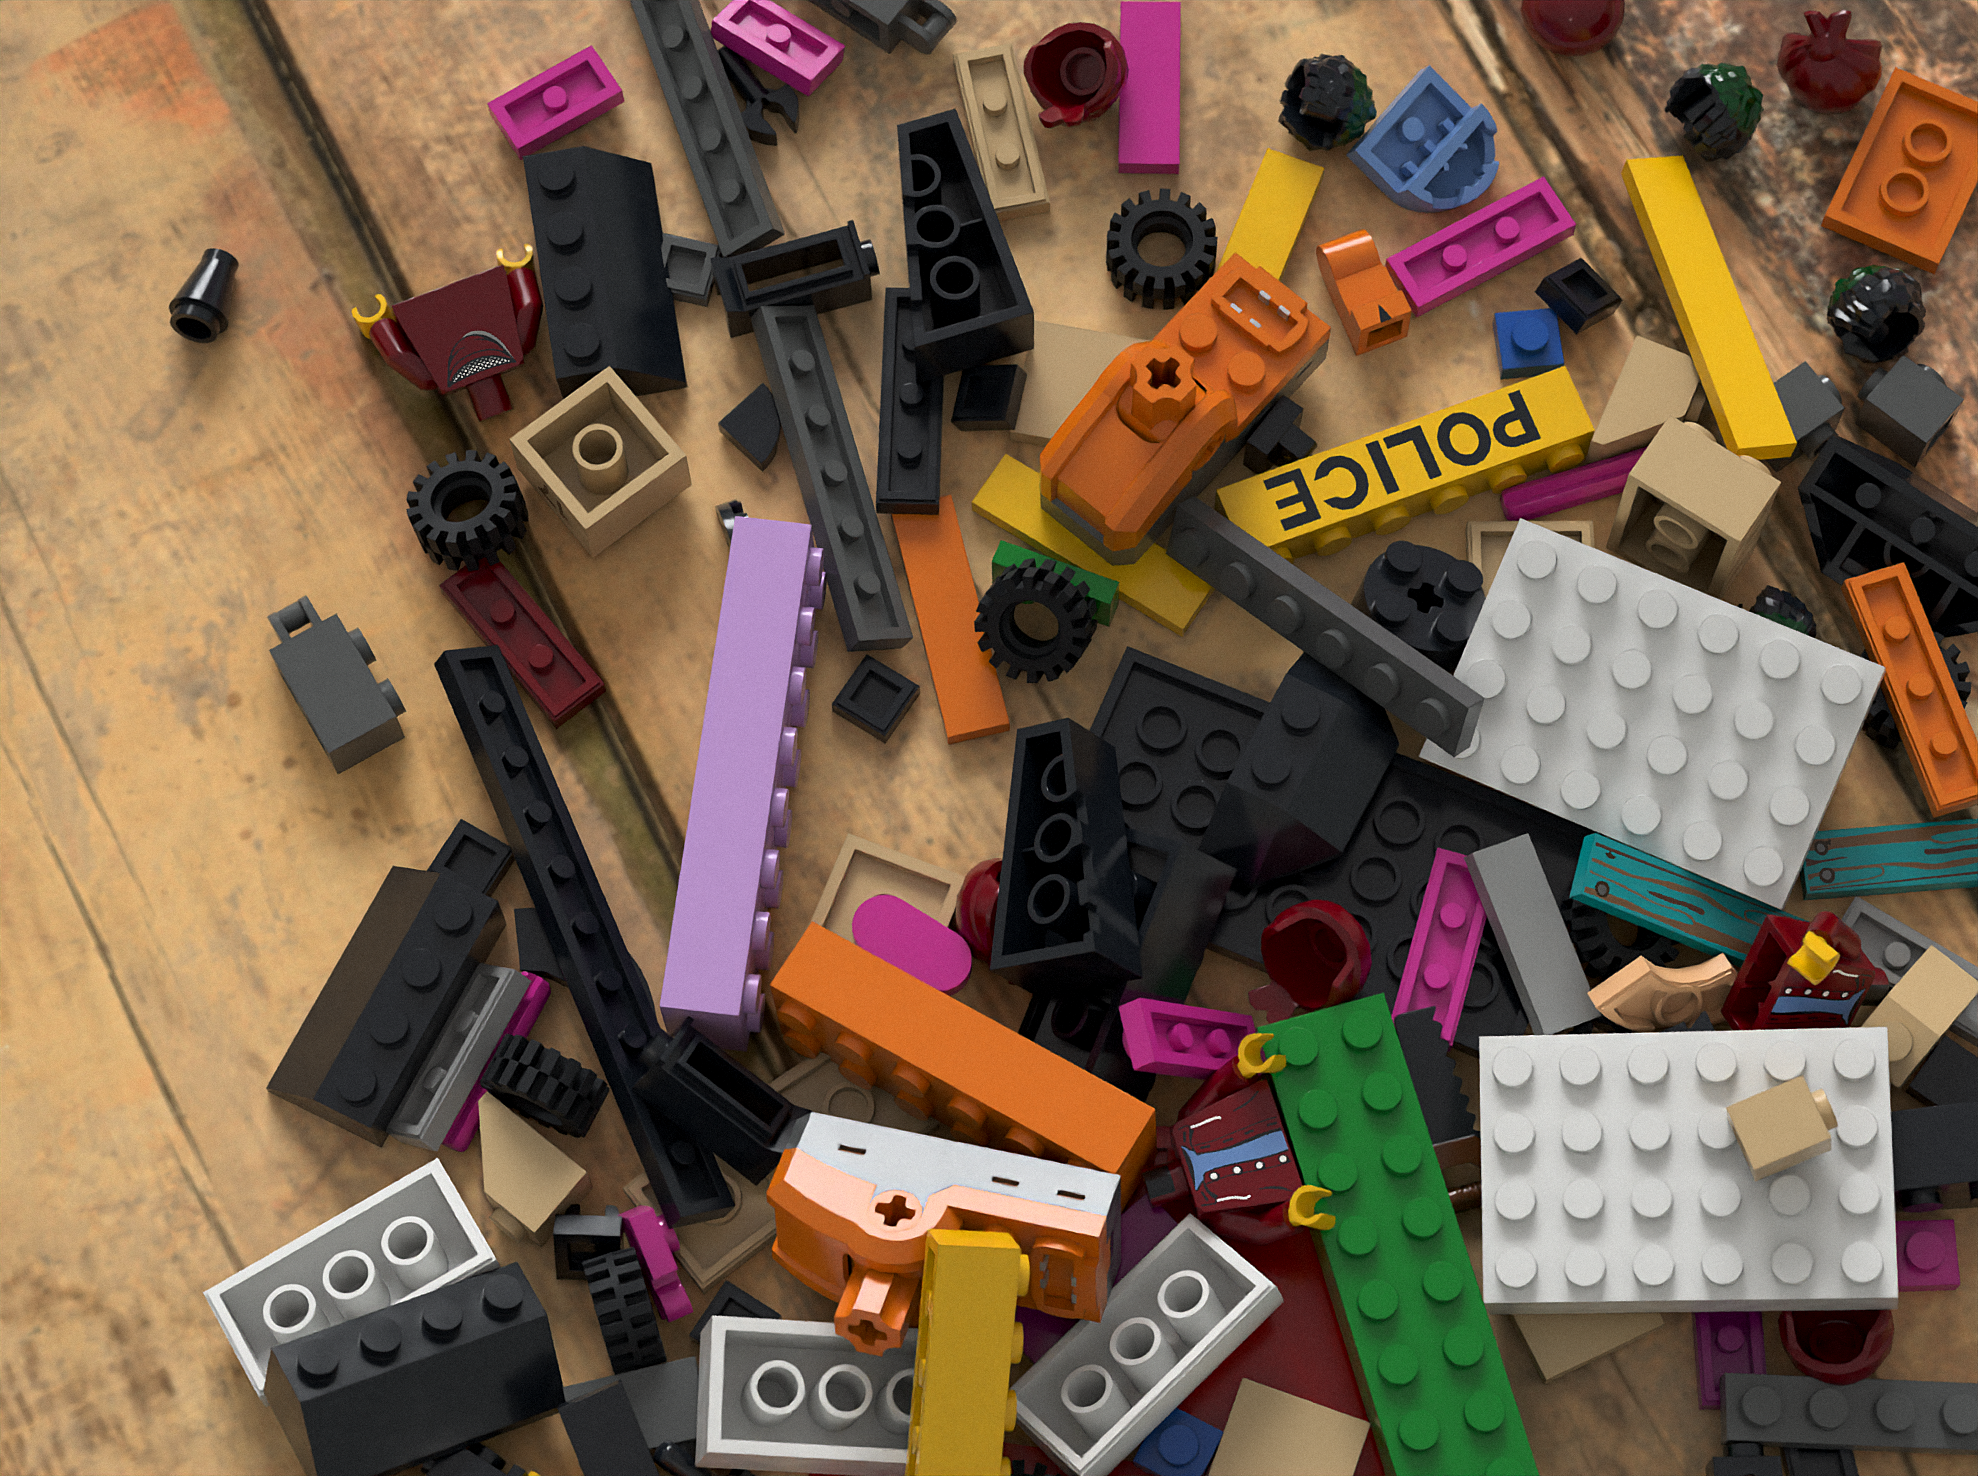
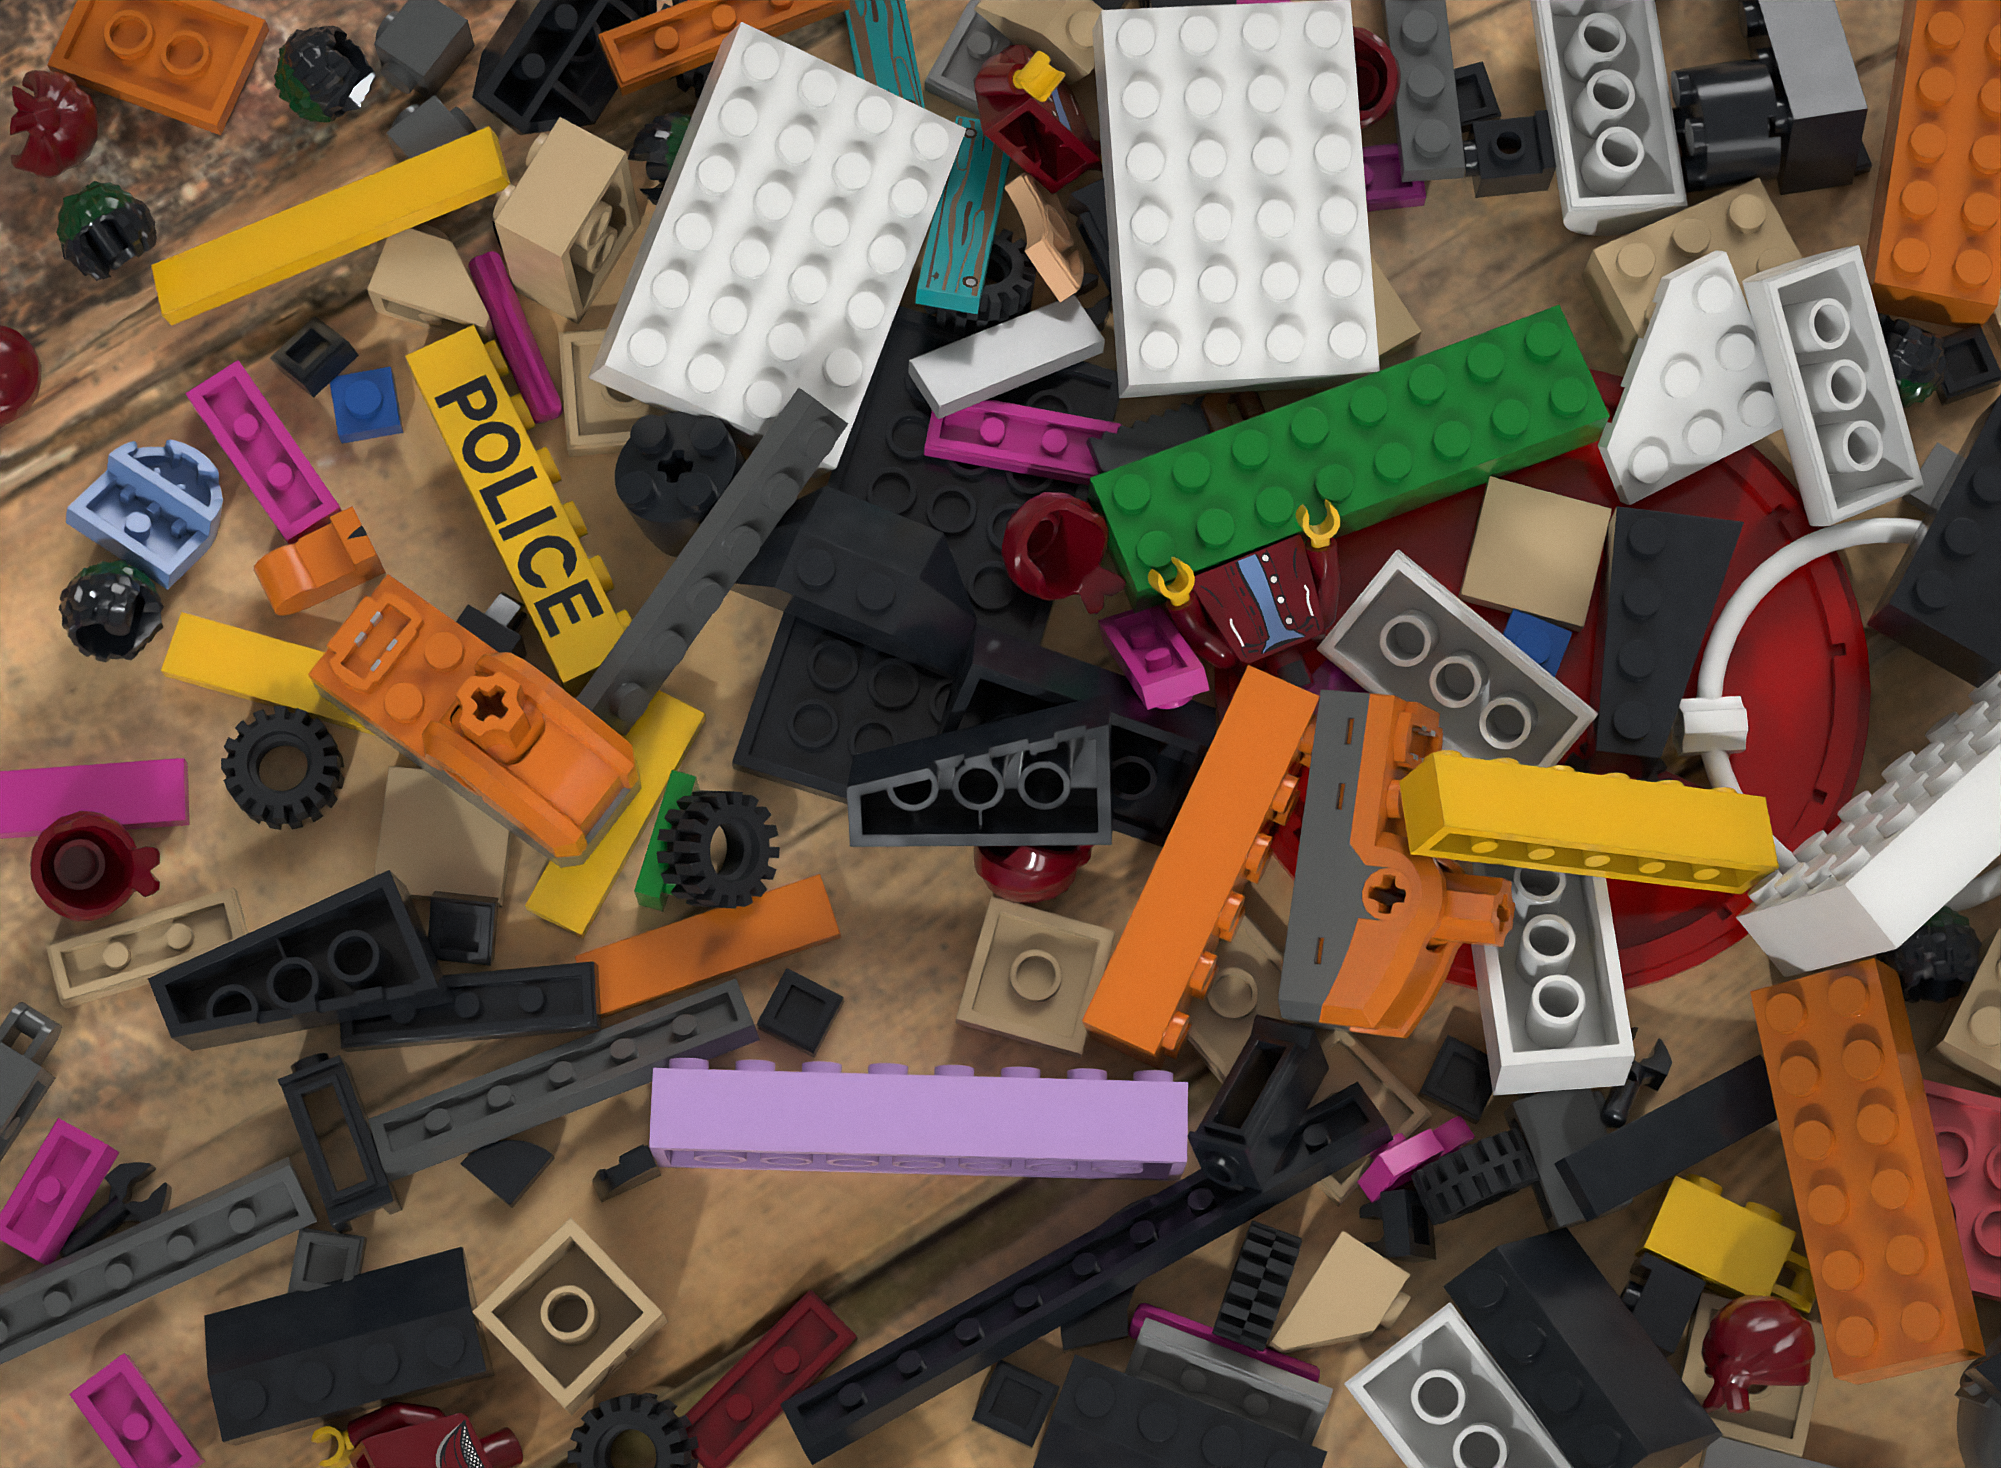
camera: 100 degrees left, 5 degrees up
(913, 942) = (1072, 939): dark pink tile -> none
(1782, 1127) = (1215, 92): tan brick -> none

